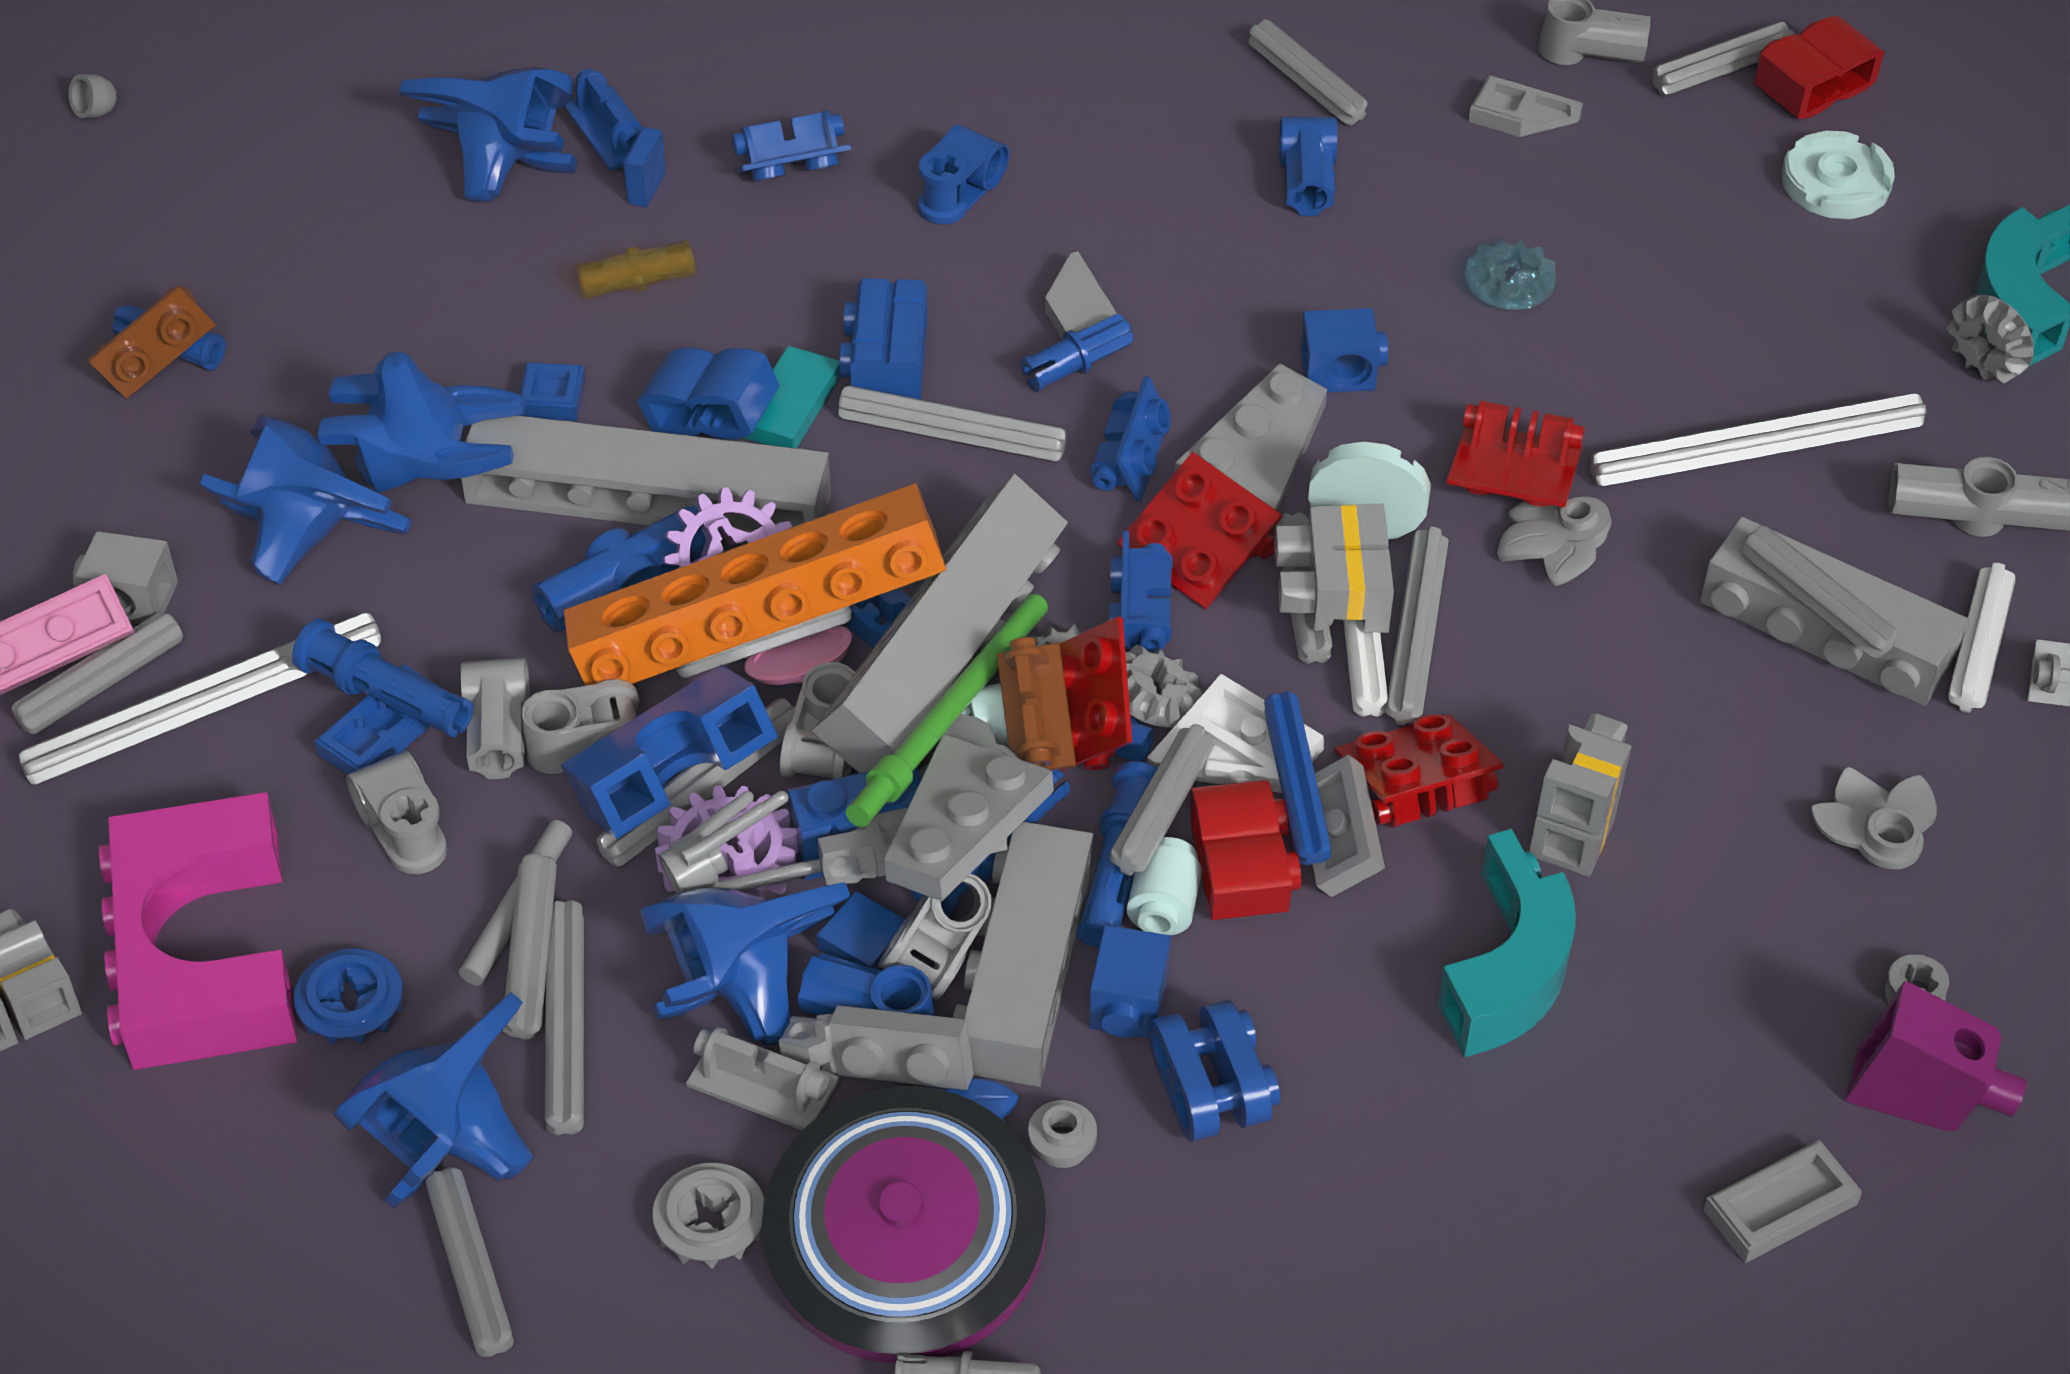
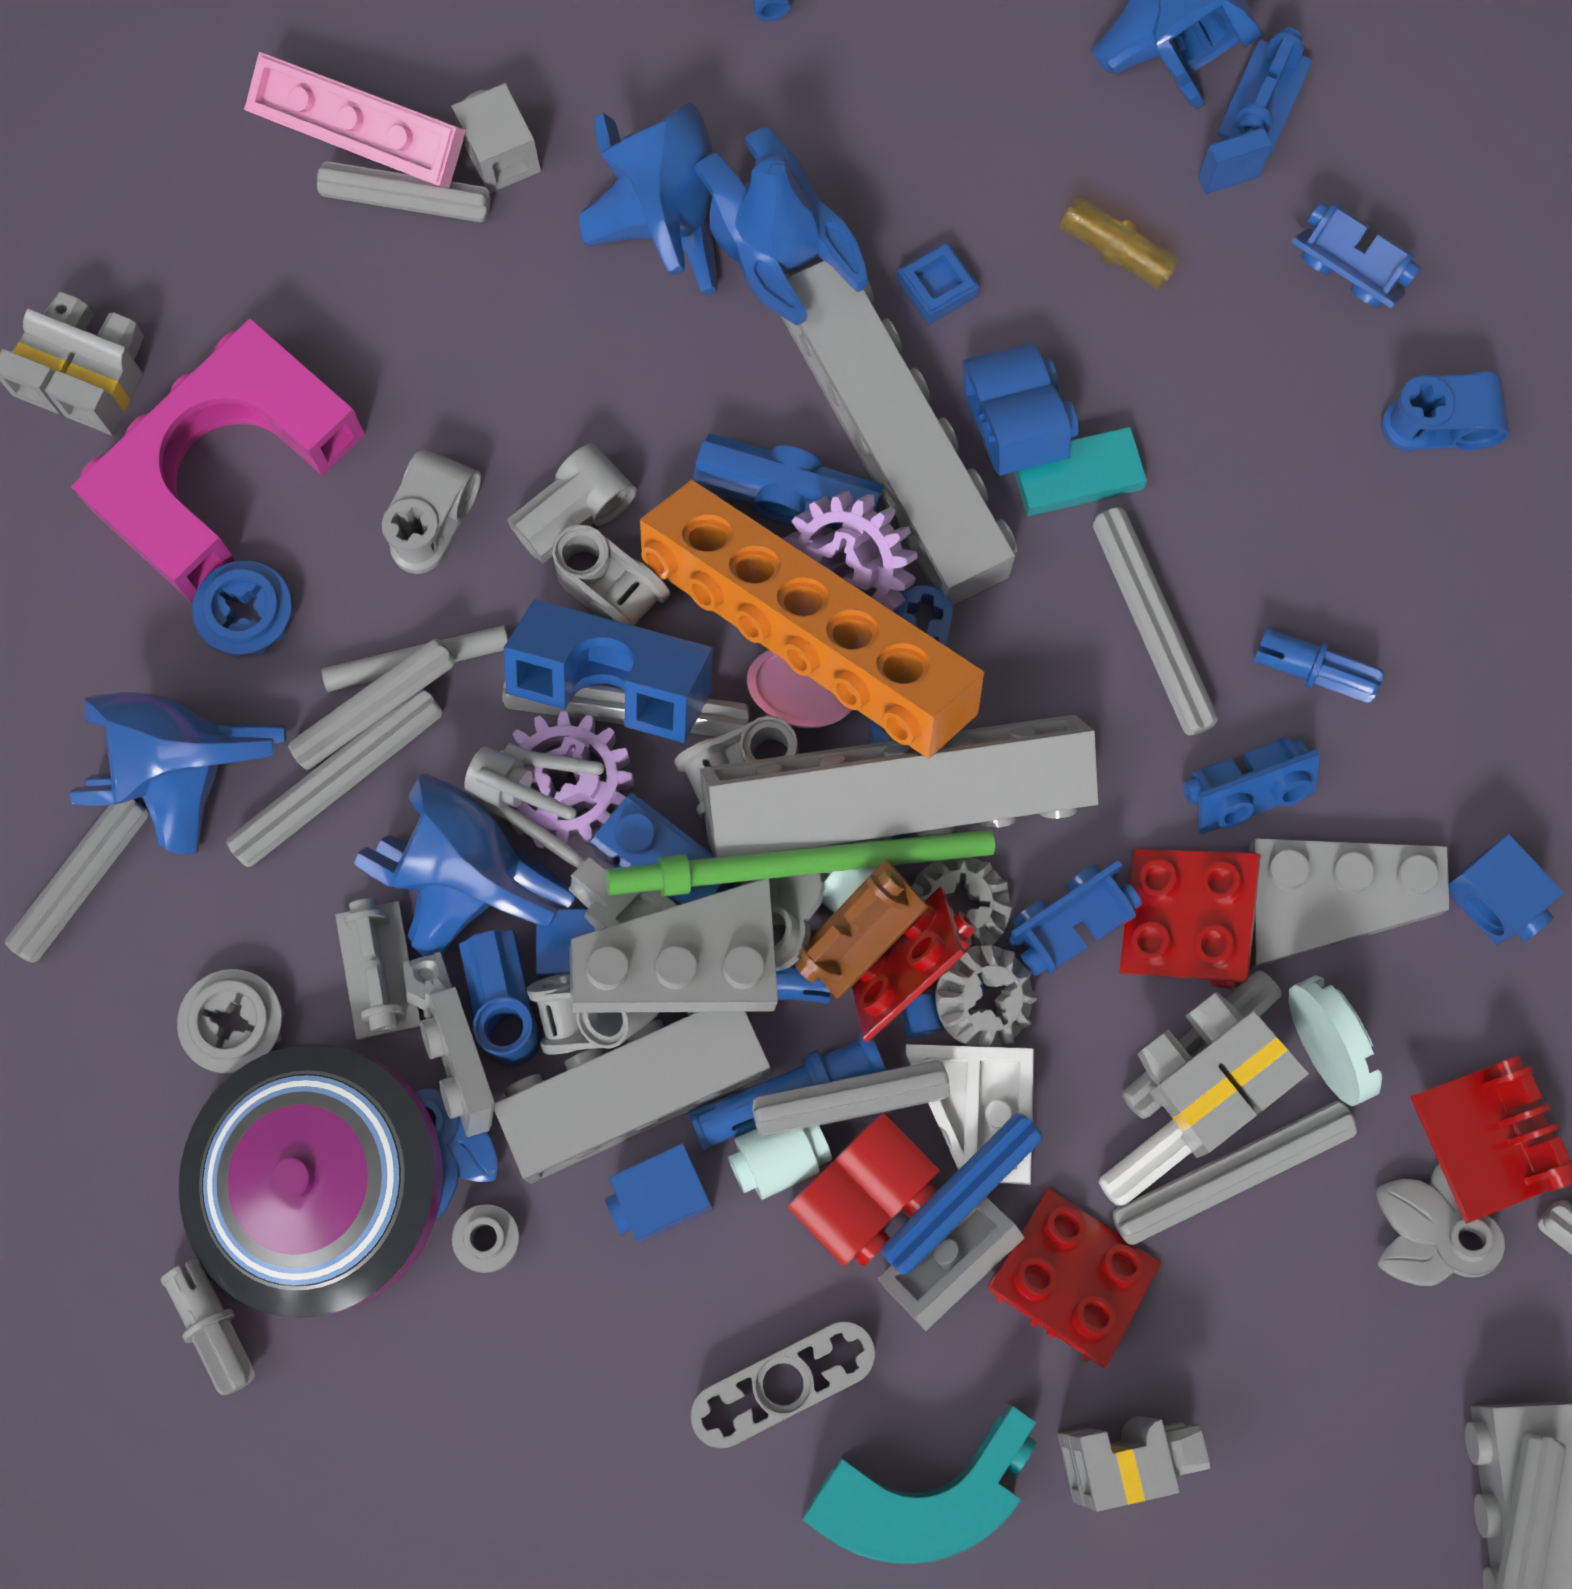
camera: 55 degrees right, 25 degrees up
(175, 707) = (437, 283): axle -> none
(360, 668) = (522, 377): blue pin -> none
(368, 734) = (503, 431): blue plate -> none
(887, 336) = (1198, 501): blue brick -> none
(1076, 298) = (1382, 621): light grey tile -> none
(1230, 1045) = (624, 1363): blue brick -> none
(1335, 1020) = (730, 1392): none -> light grey beam

